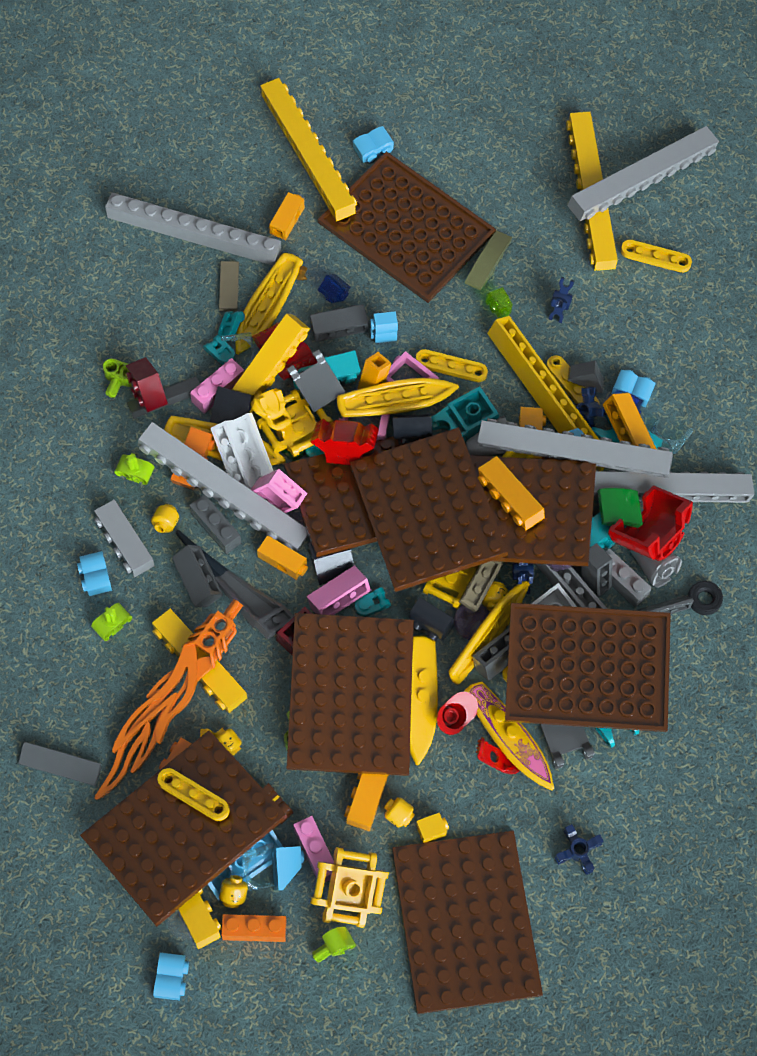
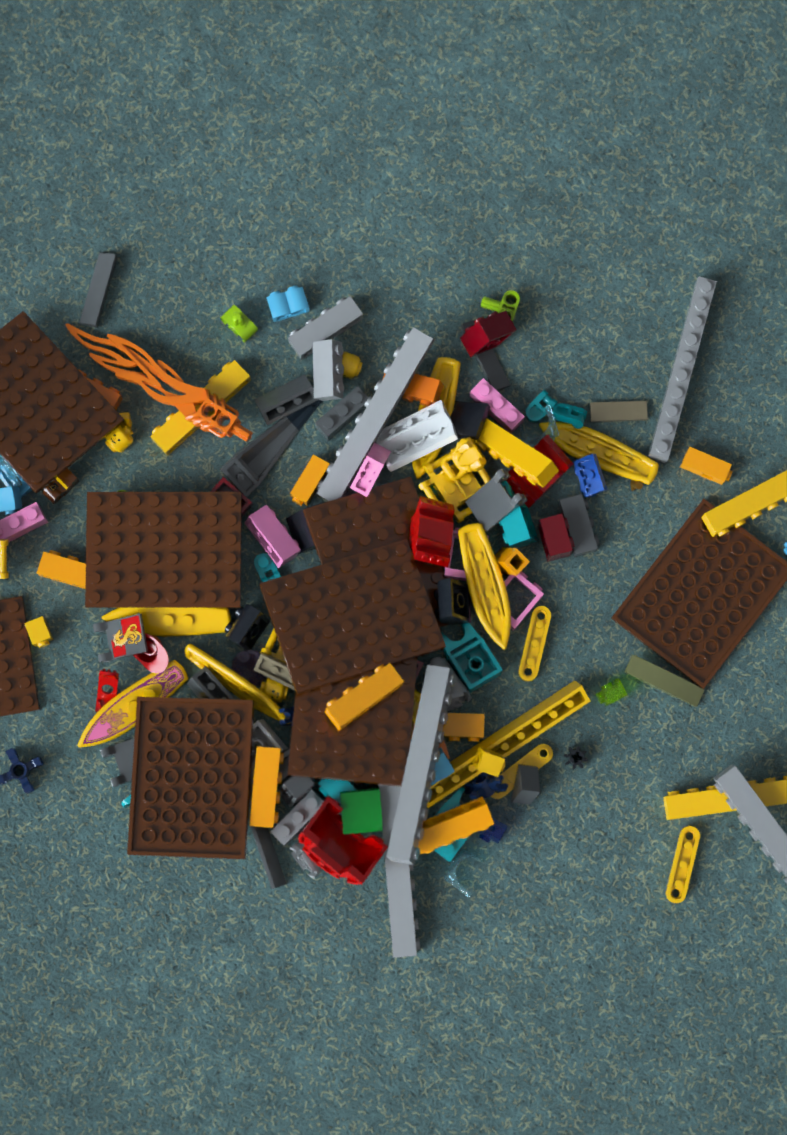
camera: 90 degrees right, 15 degrees up
(134, 468) = (400, 326): lime beam -> none
(171, 530) = (328, 370): none -> light grey brick
(193, 794) = (53, 406): yellow plate -> none
(296, 305) = (590, 475): none -> blue bracket
(334, 288) = (617, 518): clear blue brick -> none
(352, 336) = (555, 537): none -> dark red brick
(384, 327) = (571, 570): medium azure brick -> none
(399, 812) = (54, 601): yellow head -> none
(440, 738) = (124, 637): none -> flag
(560, 340) = (571, 760): none -> black gear
(561, 299) = (615, 757): dark blue pin -> none
(569, 398) = (489, 762): none -> yellow brick
(595, 595) = (265, 787): none -> light orange brick
(637, 386) = (517, 835): medium azure brick -> none
(713, 589) = (282, 915): black tyre -> none

